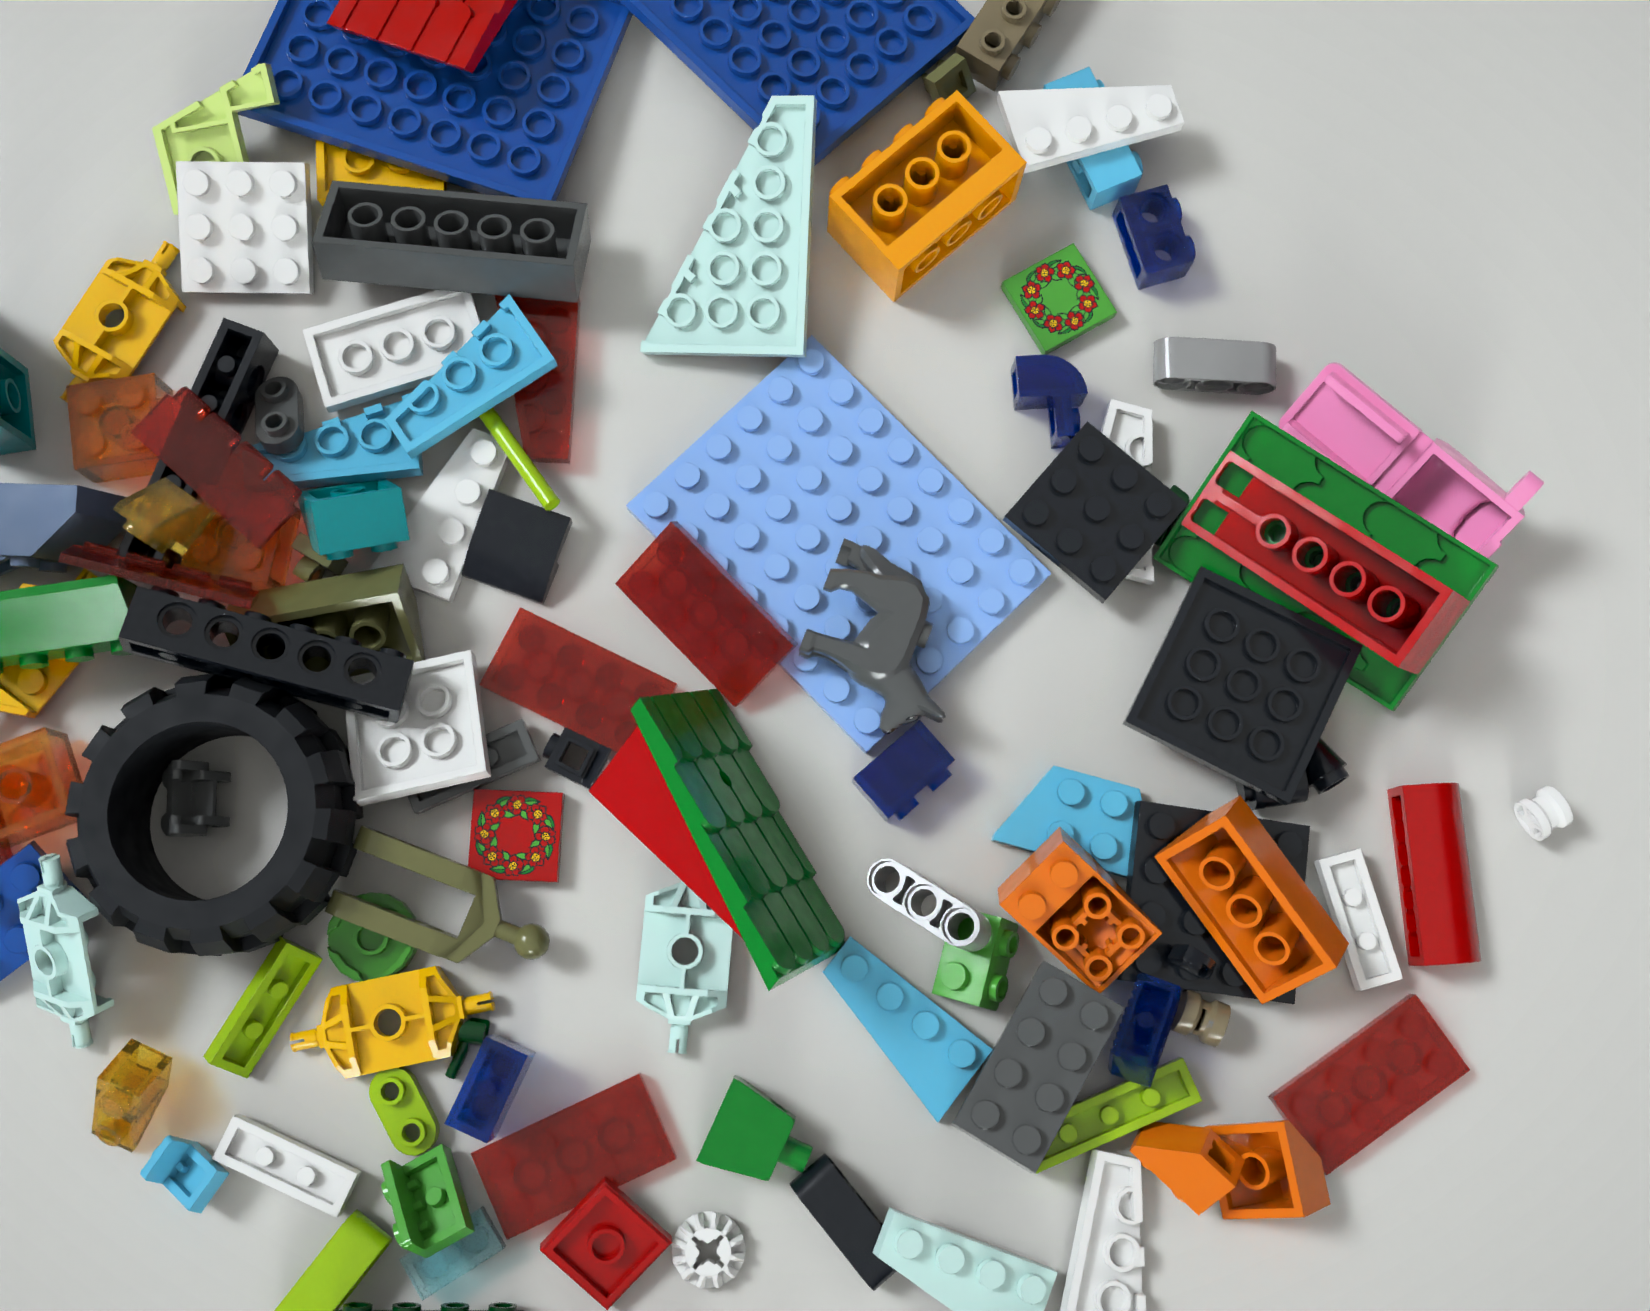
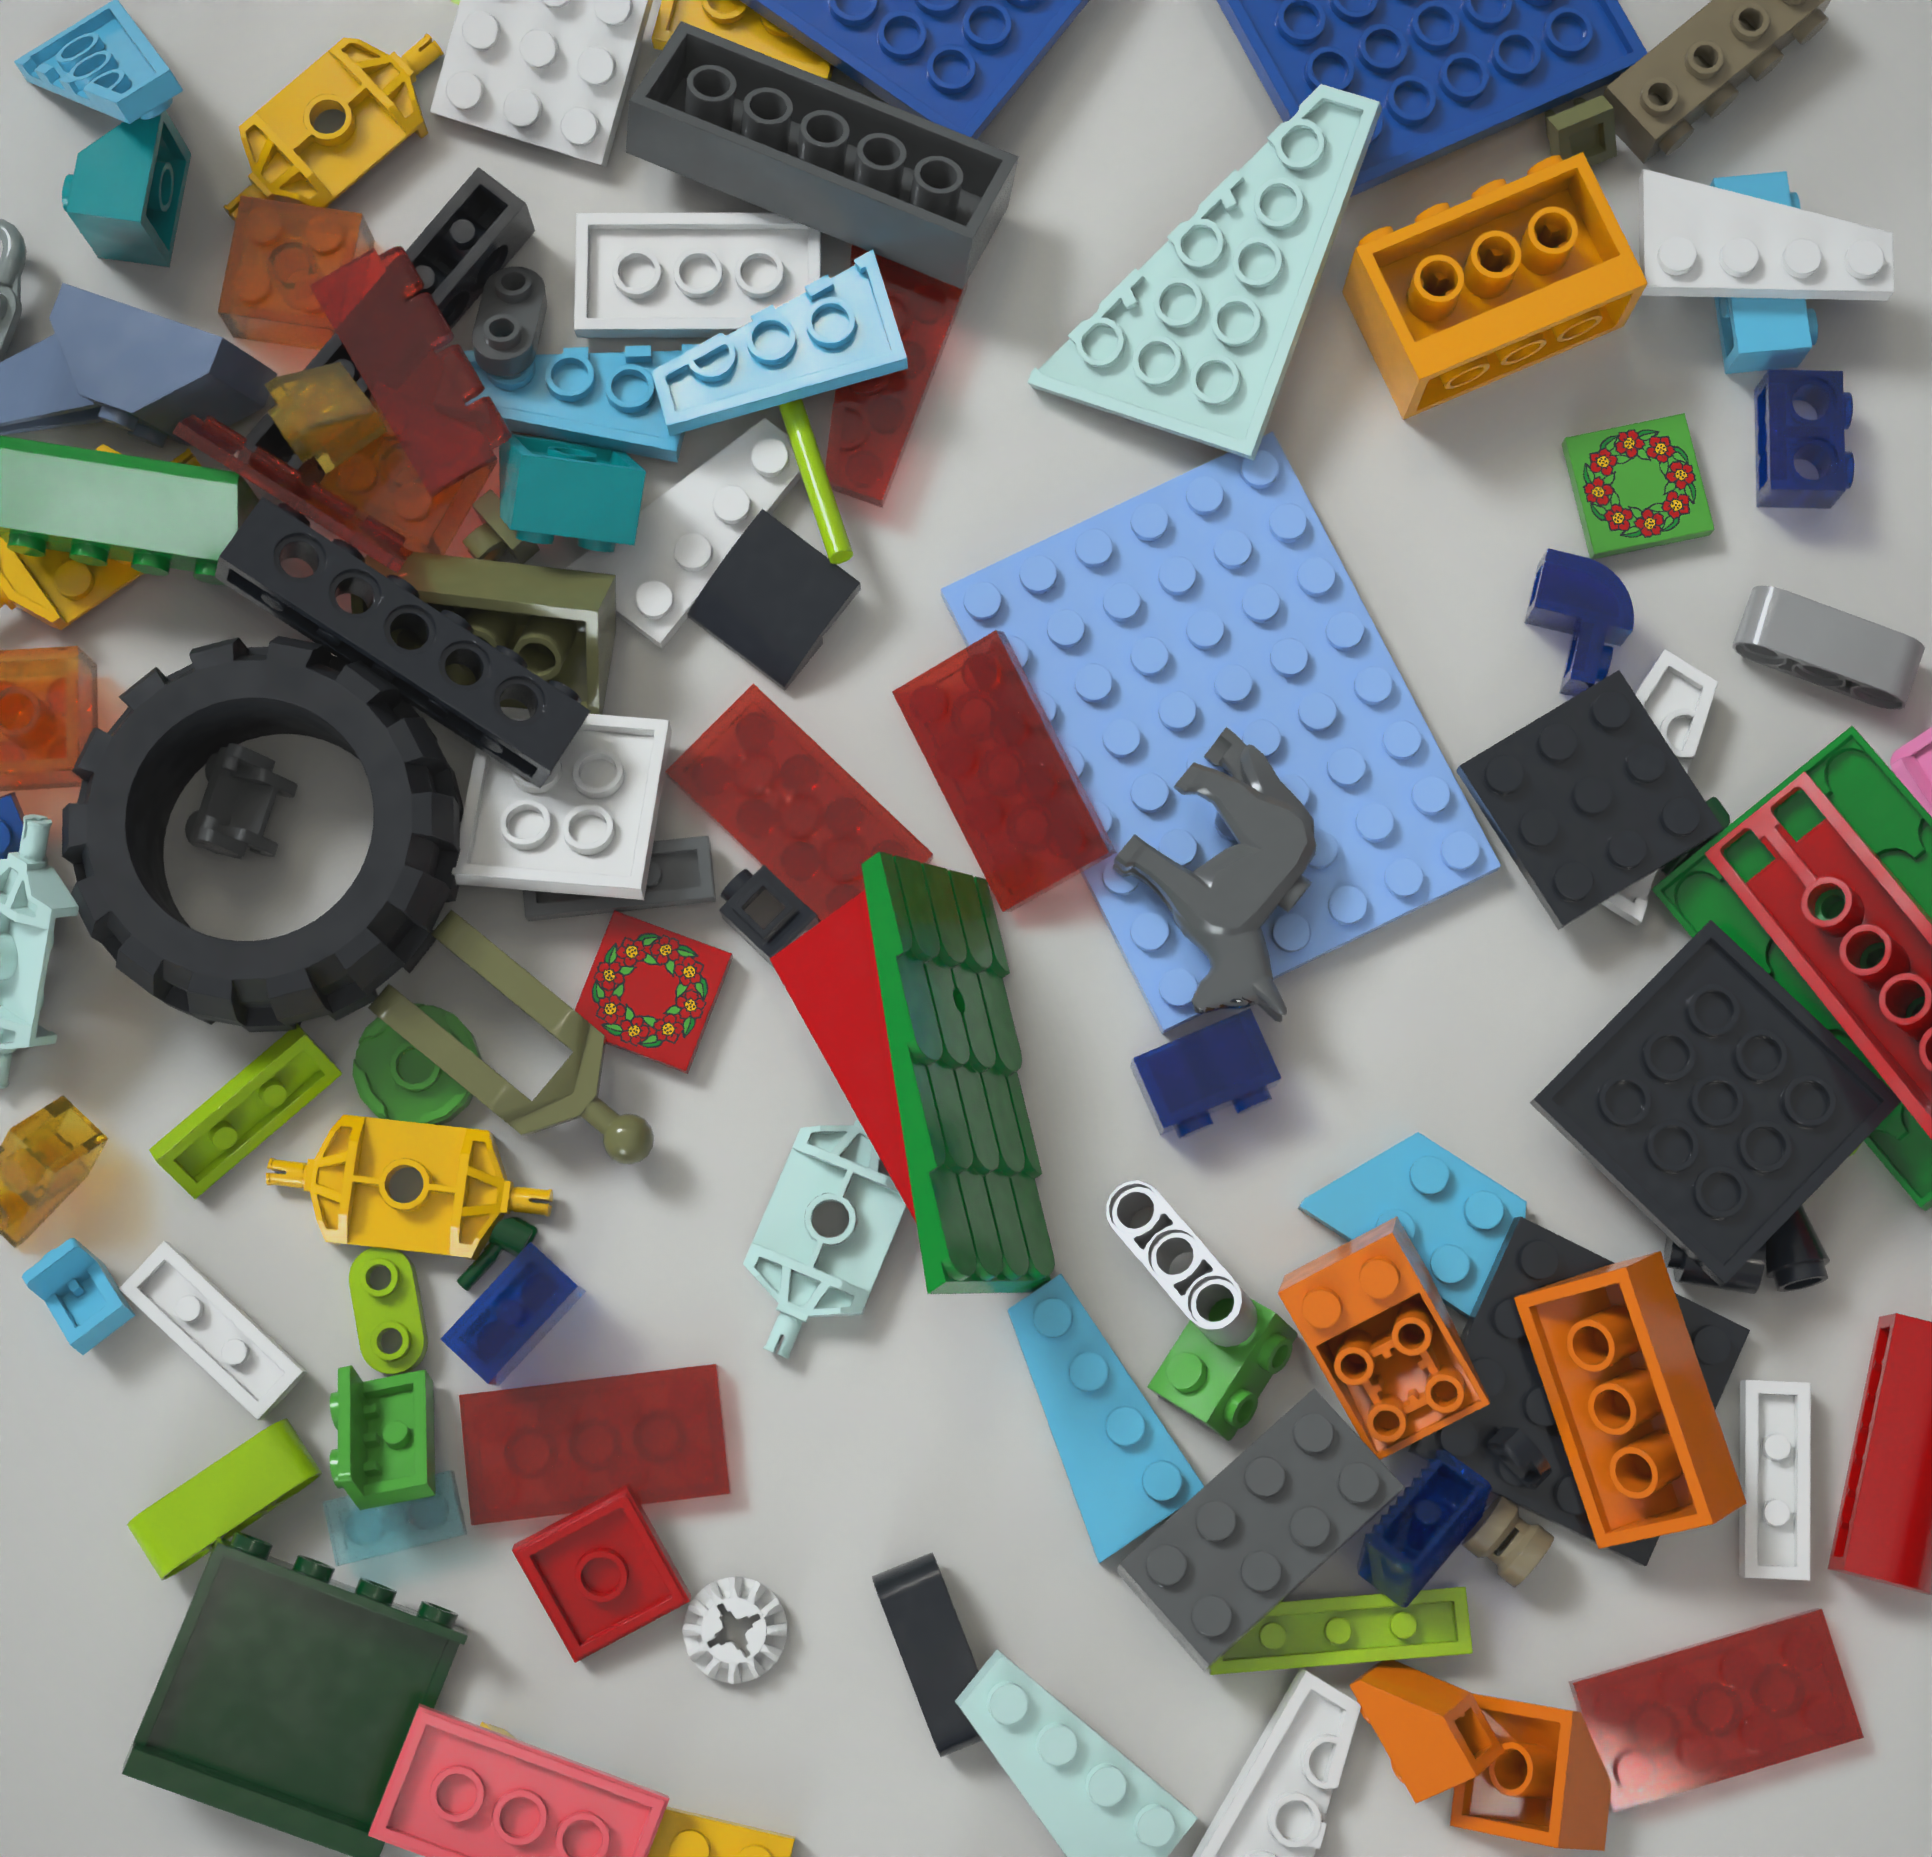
camera: 25 degrees right, 0 degrees up
(752, 1135) = (842, 1494): green torso -> none

